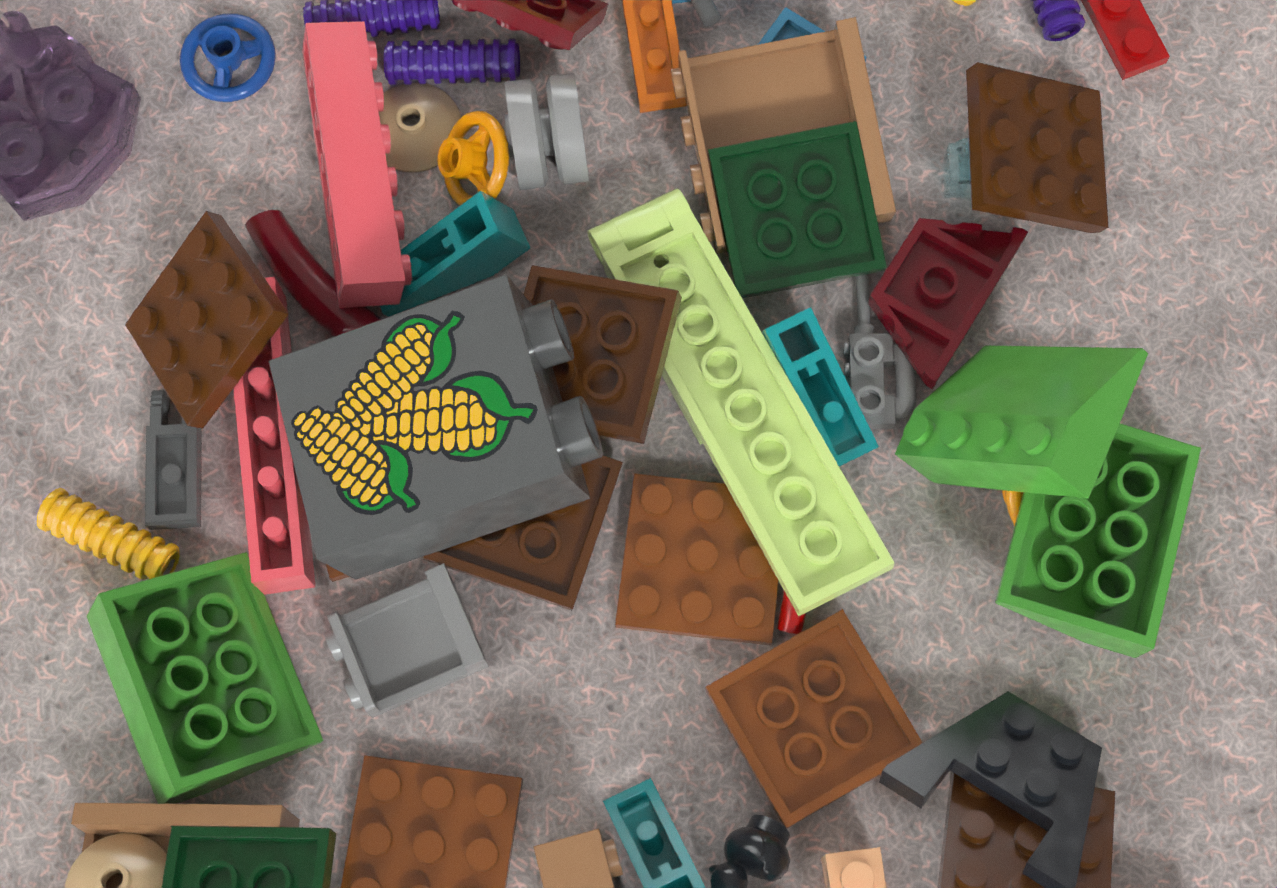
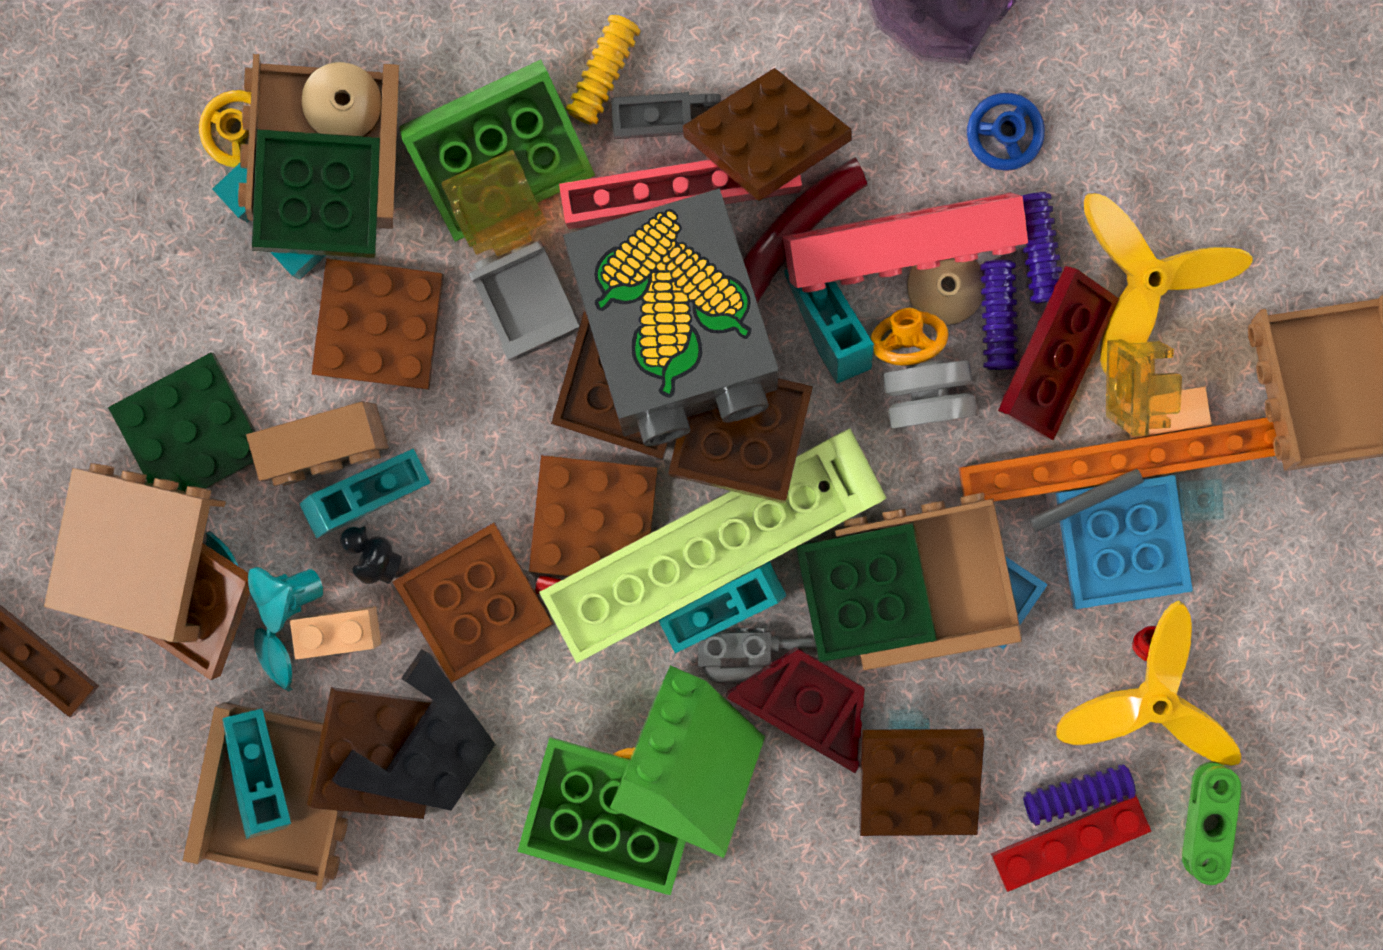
camera: 80 degrees right, 15 degrees up
(275, 675) = (494, 205): none -> clear yellow panel

